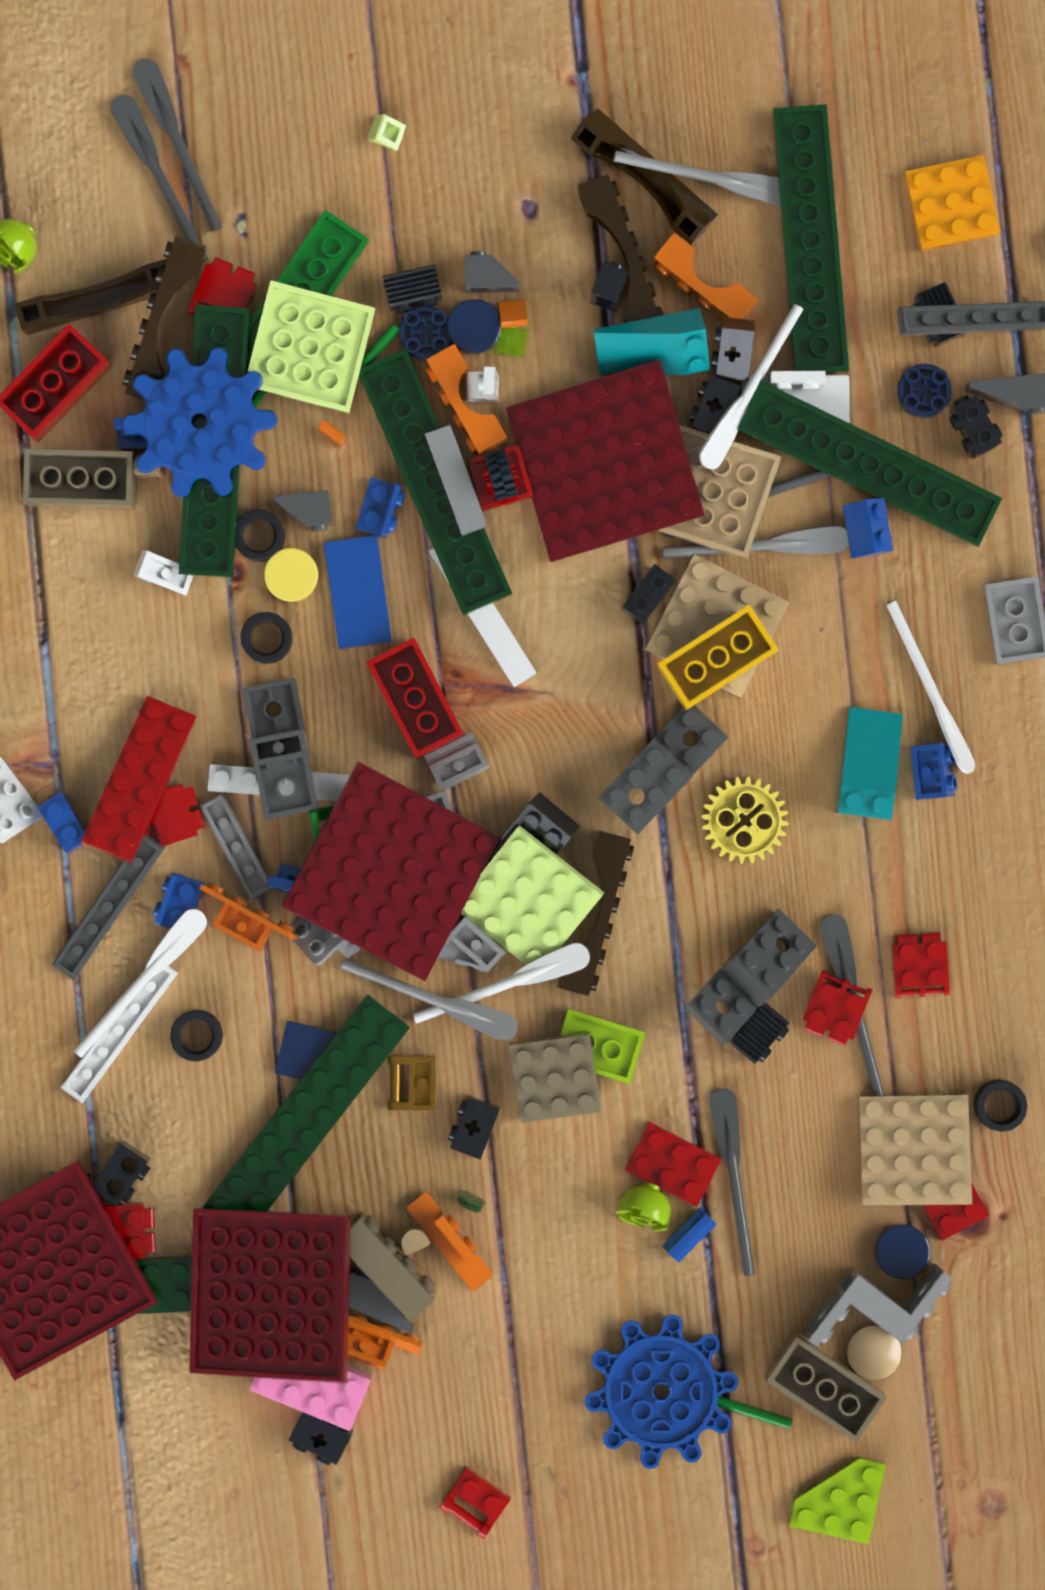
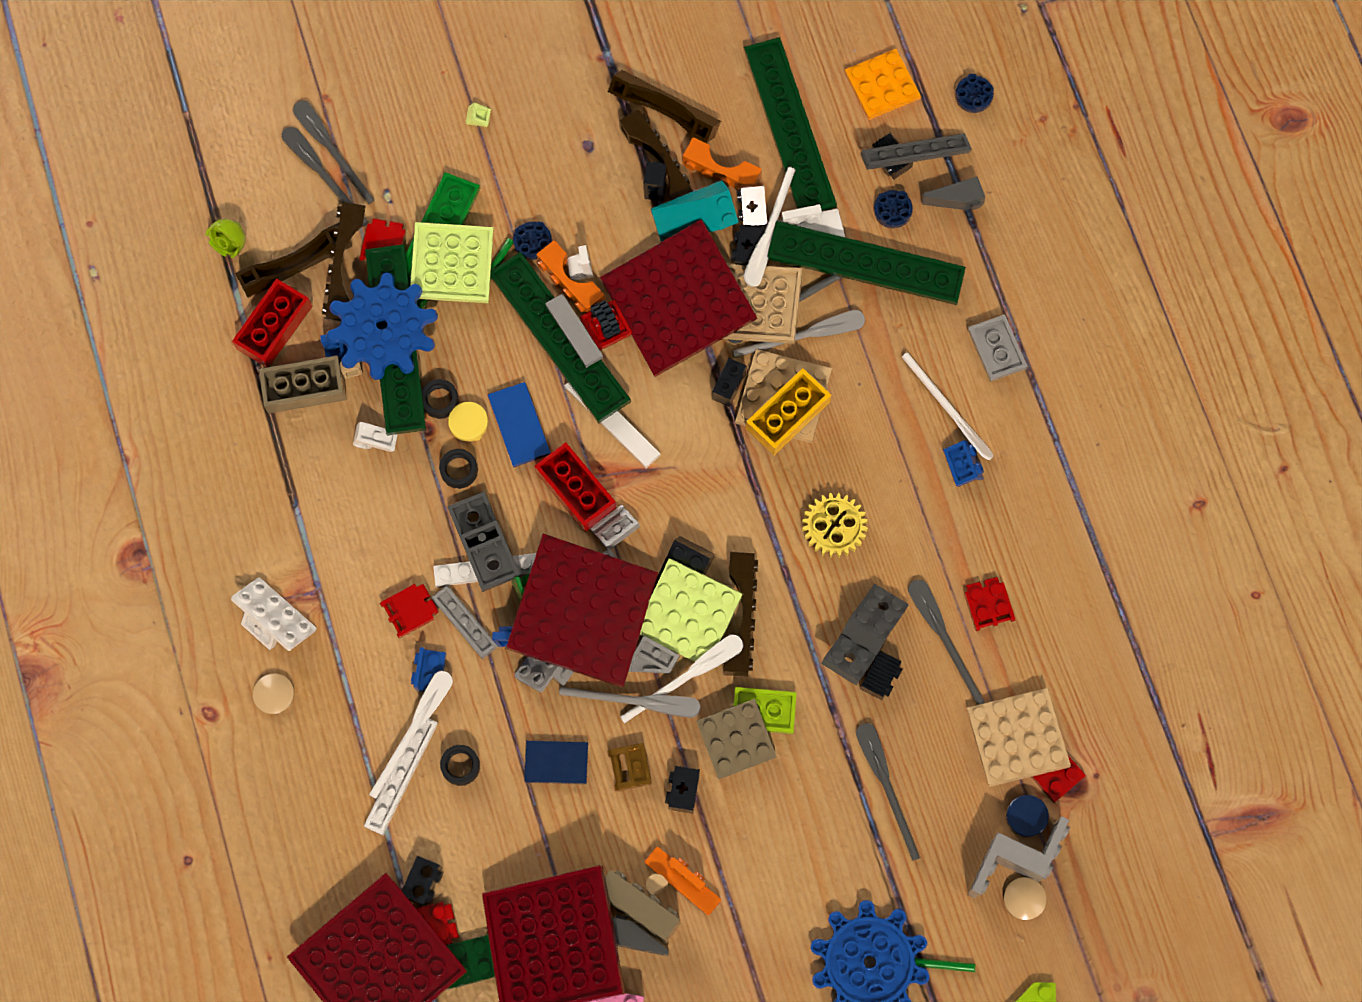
camera: 10 degrees left, 15 degrees down
(63, 822) = (333, 628): blue brick -> none
(107, 908) = (376, 683): dark grey tile -> none
(139, 779) = (383, 585): red plate -> none
(243, 923) = (481, 673): orange bracket -> none
(308, 508) = (471, 373): dark grey slope -> none
(311, 1109) = (558, 800): dark green plate -> none
(332, 433) = (478, 318): orange tile -> none
(374, 1343) = (640, 970): orange bracket -> none
(379, 508) = (523, 363): blue bracket -> none
(412, 289) = (517, 211): black brick -> none
(470, 1201) = (691, 846): clear green tile -> none
(474, 326) = (566, 228): dark blue tile -> none
(487, 275) = (568, 192): dark grey slope -> none
(512, 342) = (595, 234): clear neon green plate -> none
(513, 313) = (591, 214): orange tile -> none
(645, 1207) = (825, 822): lime cylinder -> none
(663, 768) = (766, 499): dark grey bracket -> none
(673, 1164) = (839, 787): red plate -> none
(689, 1234) = (863, 837): blue axle -> none
(750, 185) = (737, 99): light grey piece -> none
(825, 1386) = (994, 929): dark tan brick -> none
(835, 1009) = (934, 646): red plate -> none
(867, 528) = (875, 305): blue brick -> none
(869, 764) = (916, 469): teal slope -> none
(976, 428) = (934, 223): black brick -> none
(1021, 1105) = (1073, 676): black tyre -> none

